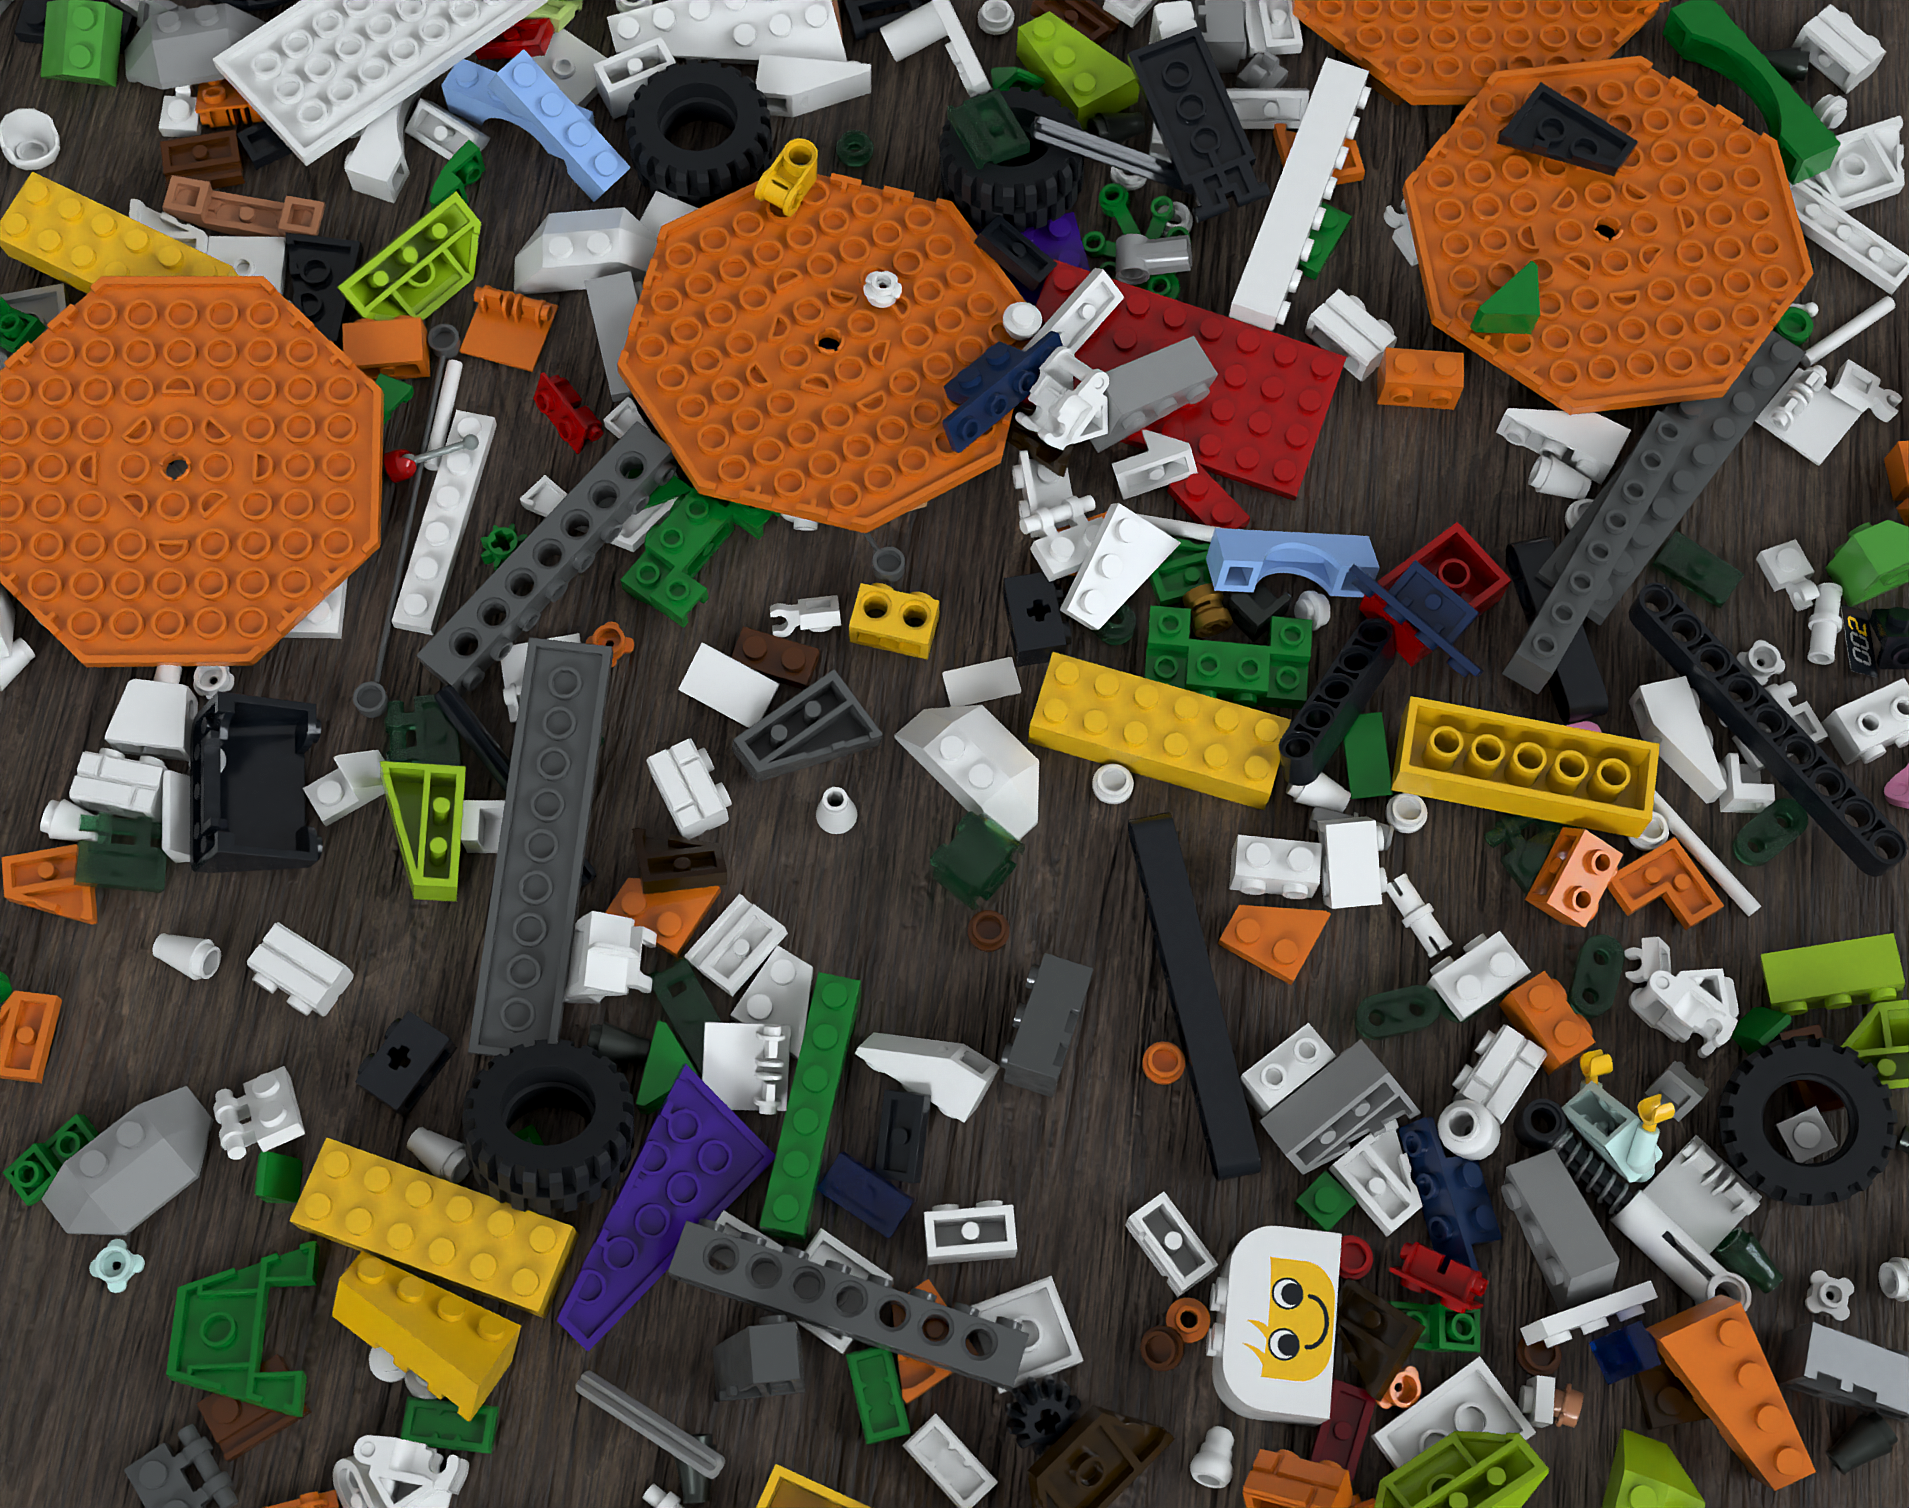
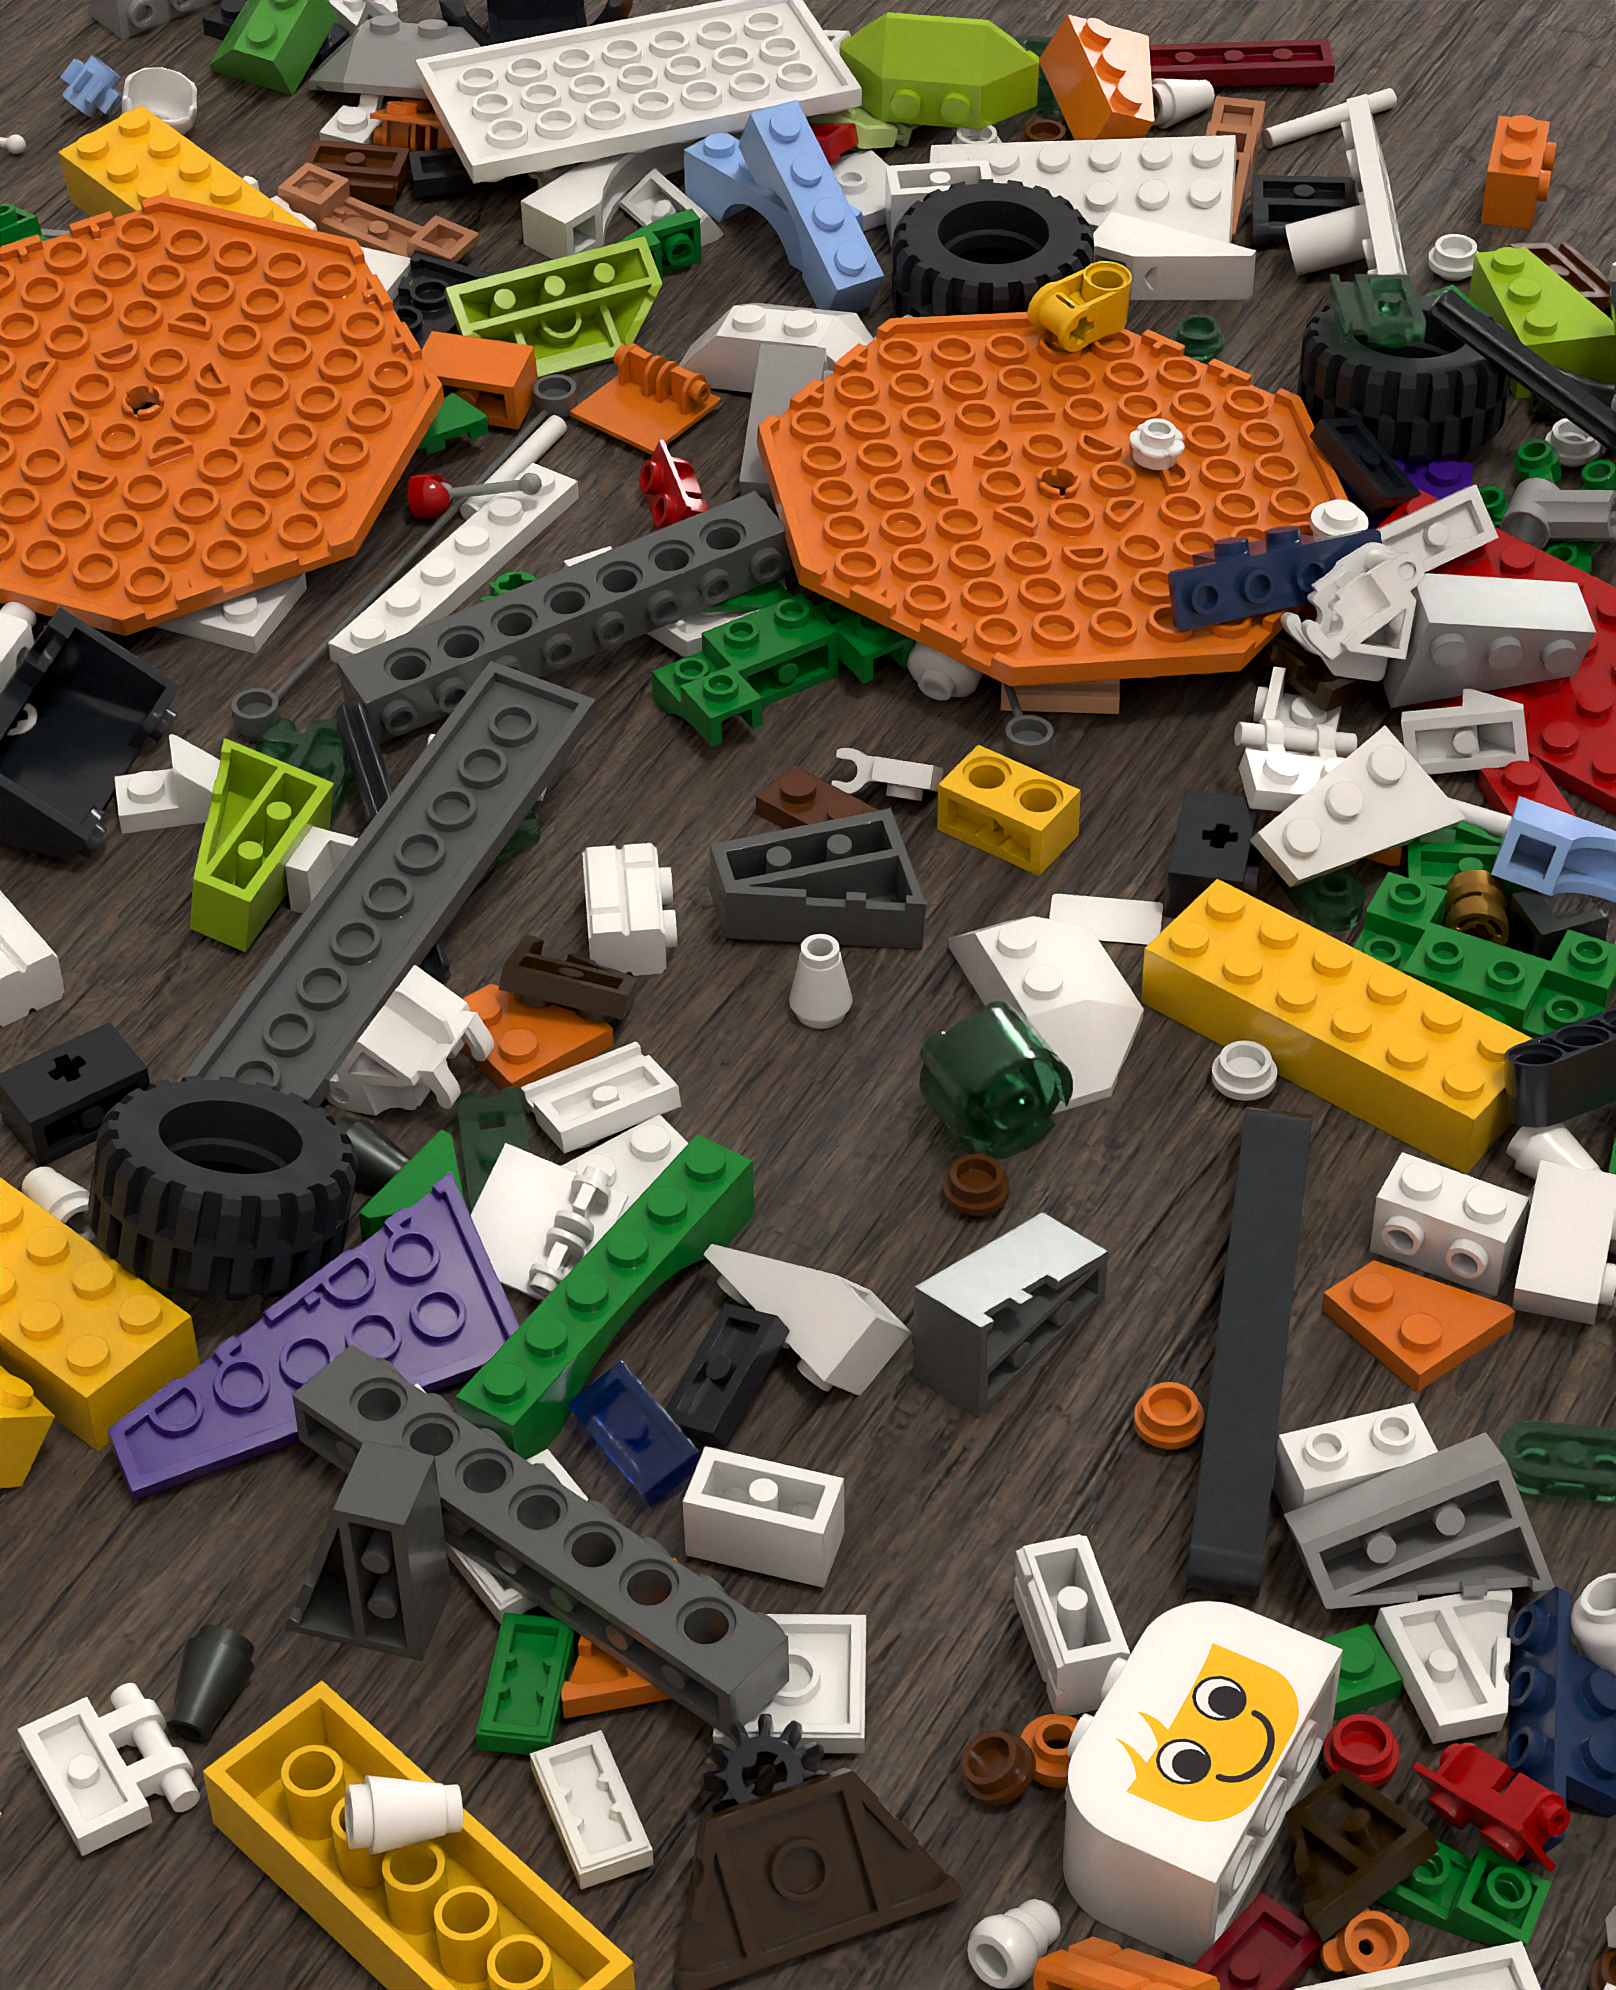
camera: 25 degrees right, 25 degrees down
(612, 633) = (606, 740): orange plate -> none
(650, 1424) = (171, 1594): light grey axle -> none
(728, 686) = (733, 804): white piece -> none

